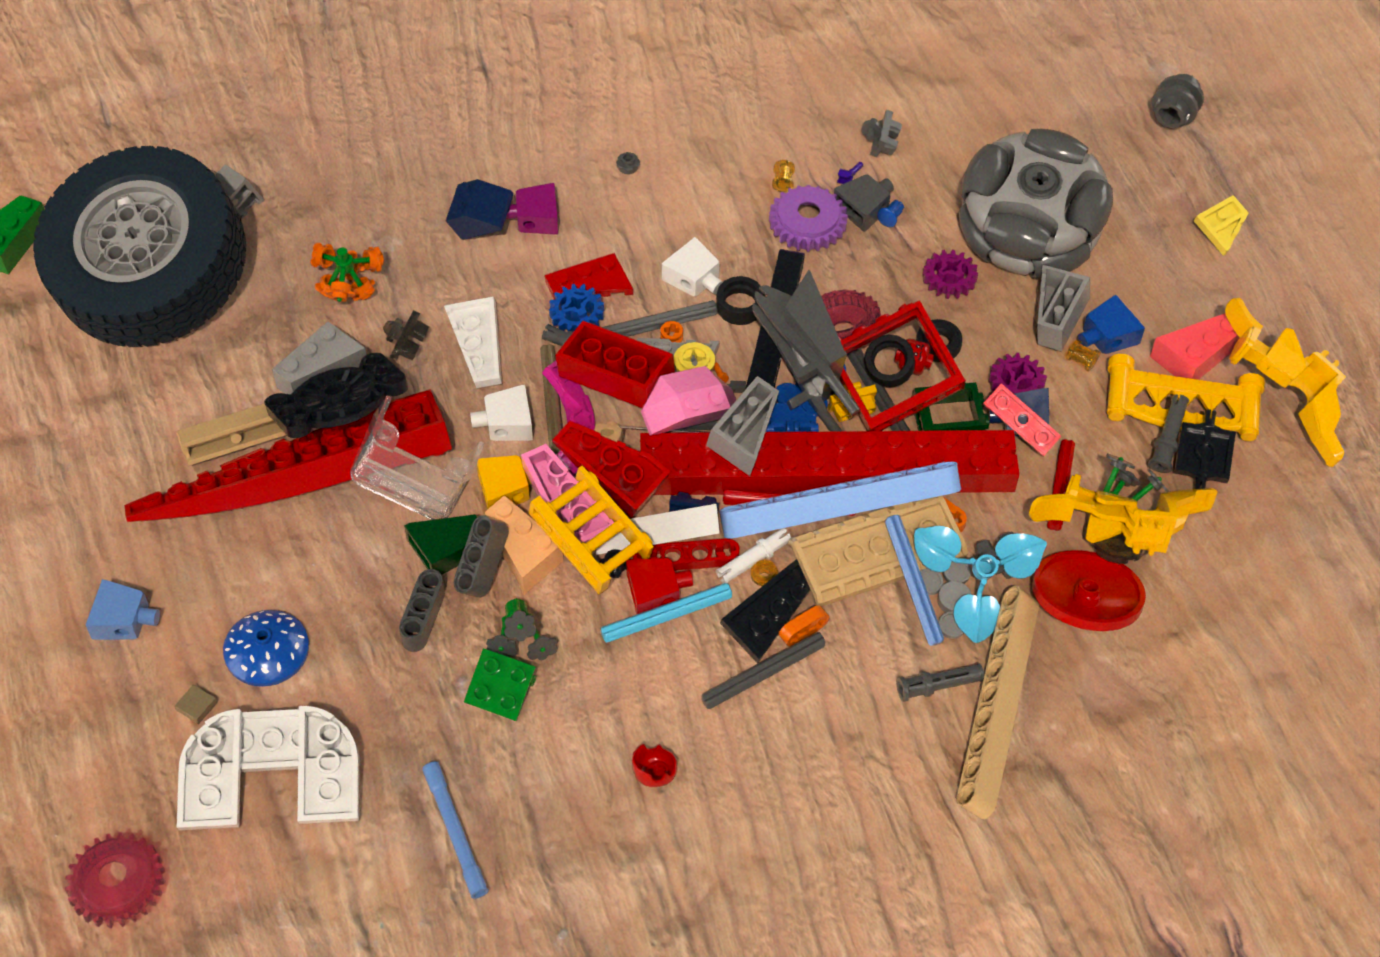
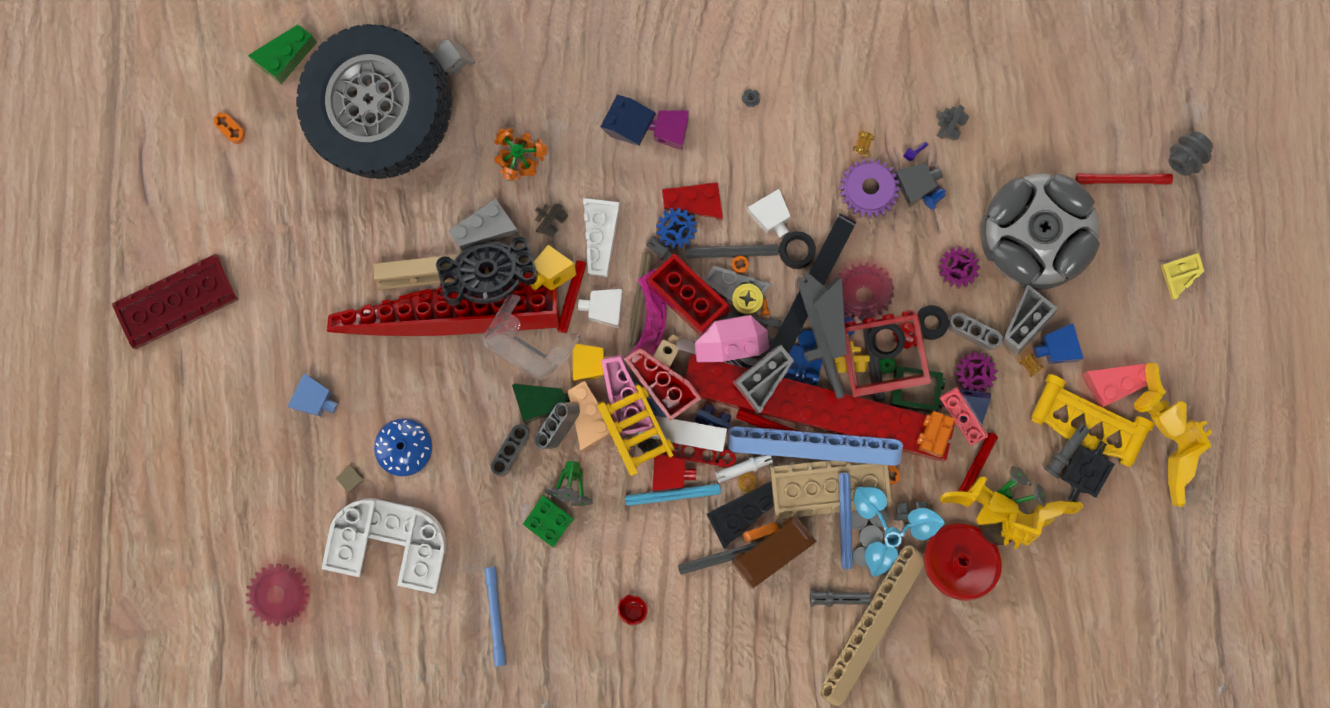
camera: 20 degrees right, 25 degrees up
(427, 383) = (552, 269): none -> yellow torso
(459, 415) = (571, 297): none -> red axle
(826, 633) = (773, 552): none -> reddish brown windscreen
(899, 392) = (890, 369): none -> green plate
(995, 439) = (936, 433): none -> orange brick
(998, 335) = (984, 331): none -> light grey beam
(1147, 140) = (1156, 179): none -> red piece

